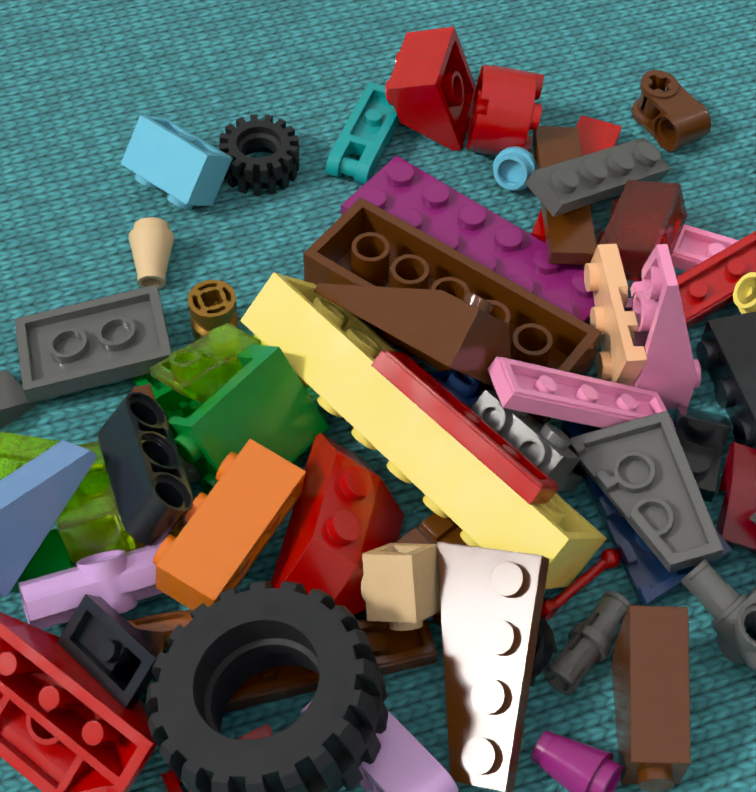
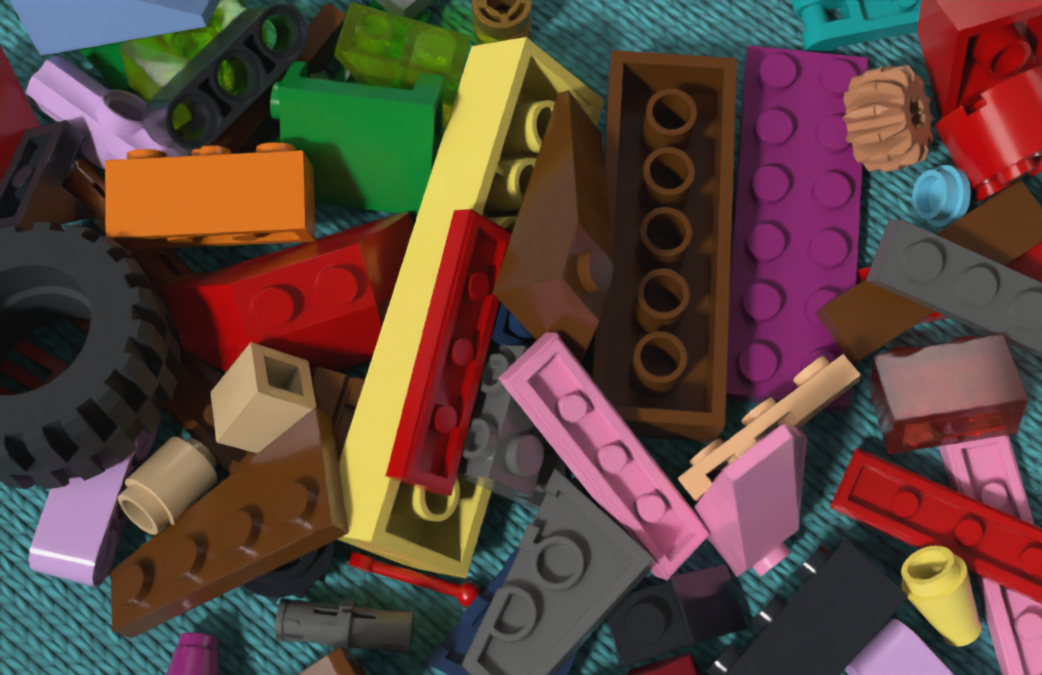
camera: 60 degrees right, 20 degrees up
(416, 694) = (168, 484): none -> tan brick
(450, 160) = (888, 118): none -> nougat gear

